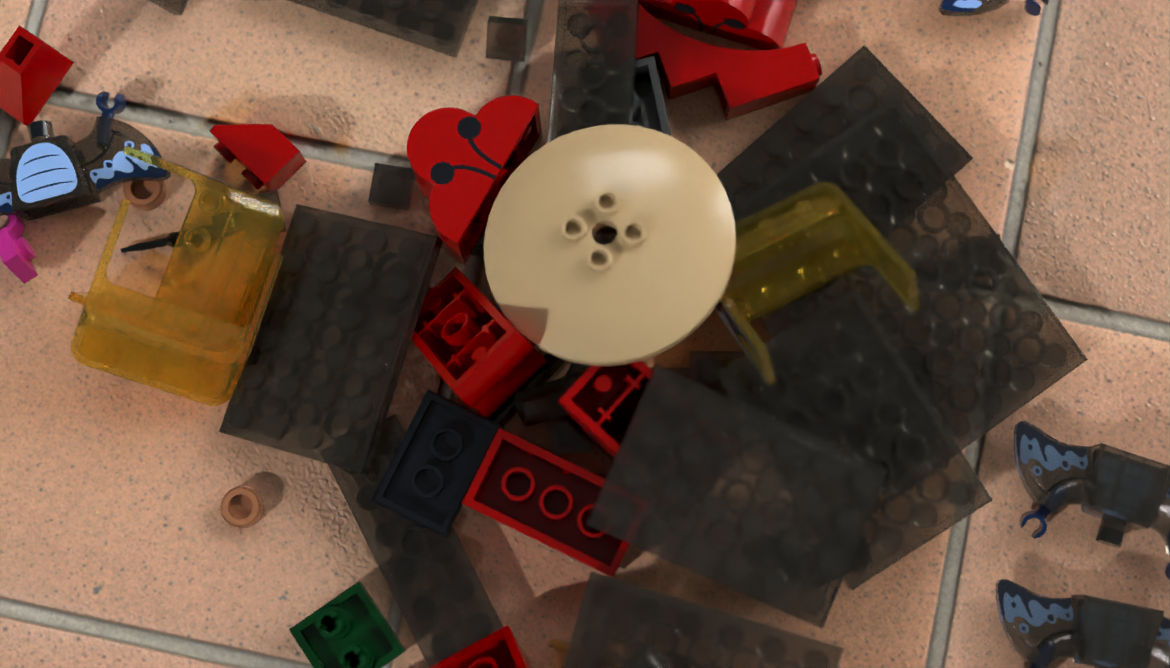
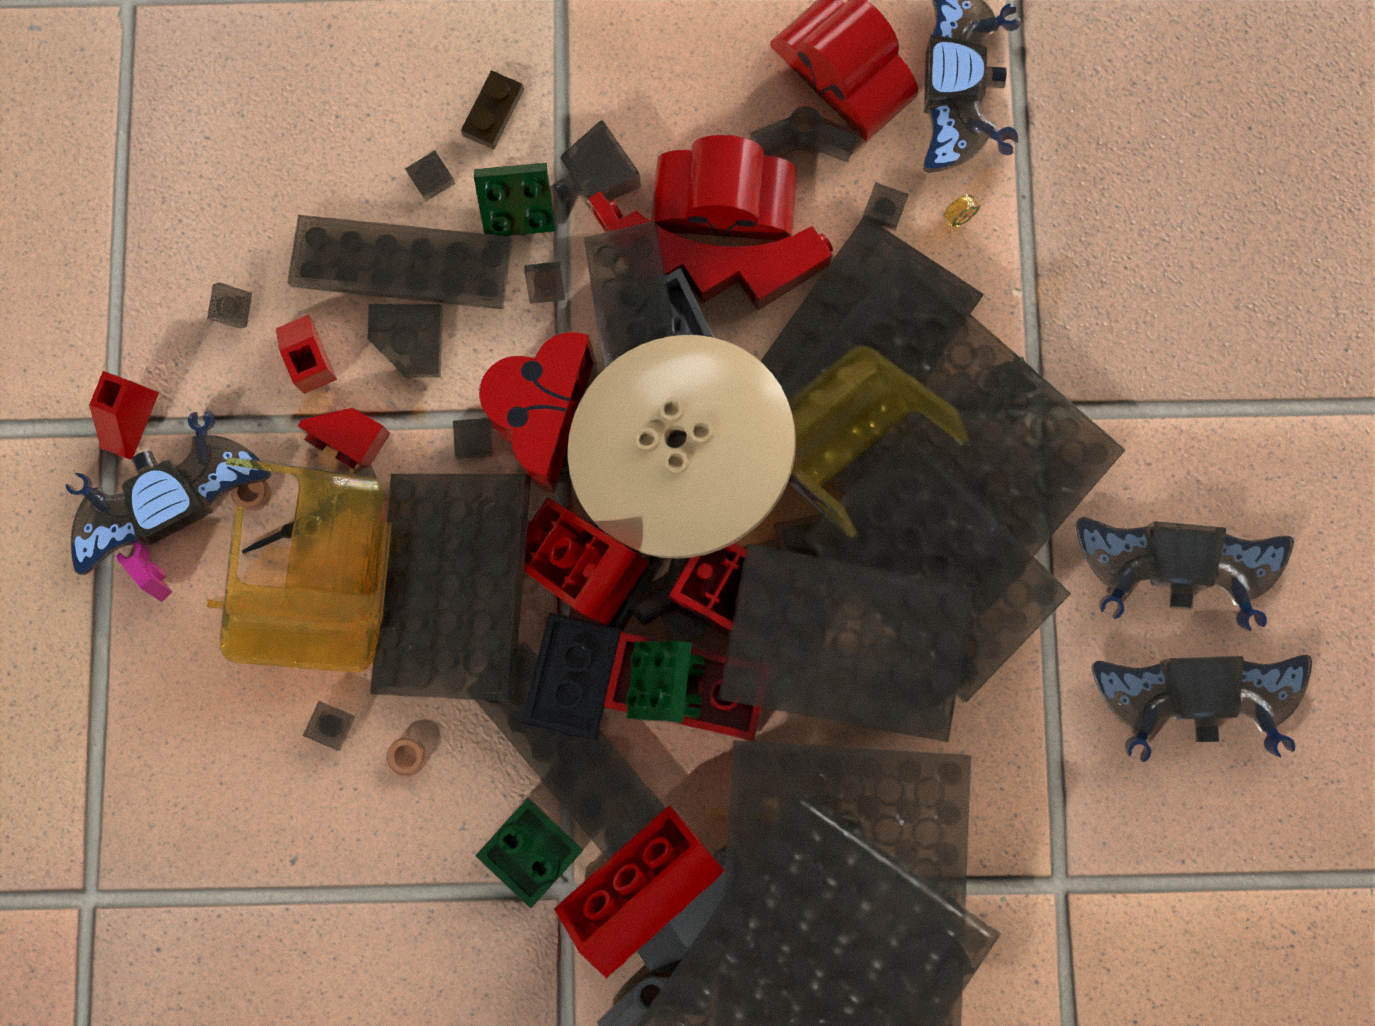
camera: 10 degrees left, 0 degrees up
(168, 455) = (329, 725): none -> clear smoke plate
(235, 58) = (304, 355): none -> red slope
(349, 64) = (408, 337): none -> clear smoke plate
(528, 490) = (660, 681): none -> dark green plate
(889, 40) = (885, 206): none -> clear smoke plate
(969, 63) = (961, 210): none -> clear yellow tile

